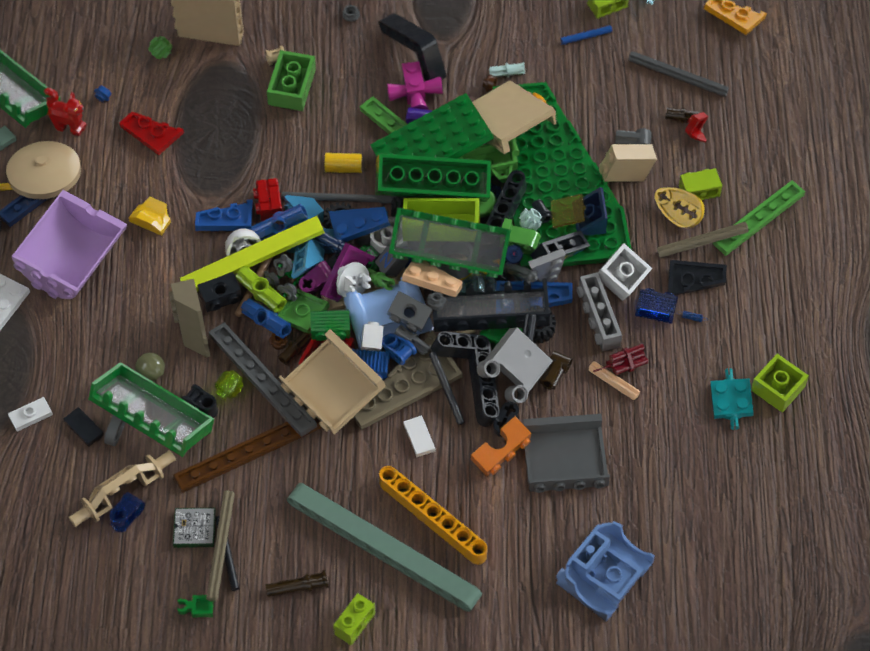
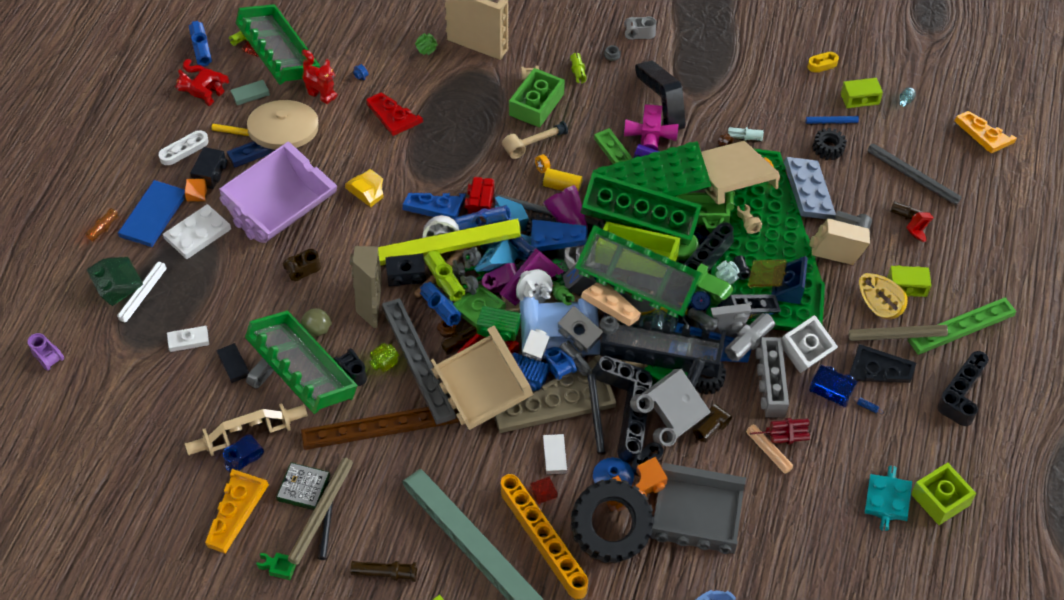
camera: 15 degrees right, 5 degrees down
(114, 314) = (303, 264): none -> dark brown piece
(138, 563) = (237, 505): none -> light orange wing
(286, 137) = (516, 147): none -> tan piece
(318, 149) = (542, 163): none -> light orange tile
(322, 37) = (578, 68): none -> lime pin
(359, 191) = (566, 207): none -> magenta cone
(419, 472) = (543, 490): none -> clear red plate
(469, 444) = (605, 466): none -> blue dish
(518, 478) = (640, 513): none -> black tyre
(538, 164) = (751, 224): none -> tan piece
(568, 278) = (749, 337): none -> light grey piece
(583, 113) = (809, 188): none -> sand blue plate
(587, 69) = (829, 151): none -> black tyre
(770, 289) = (953, 400): none -> black beam

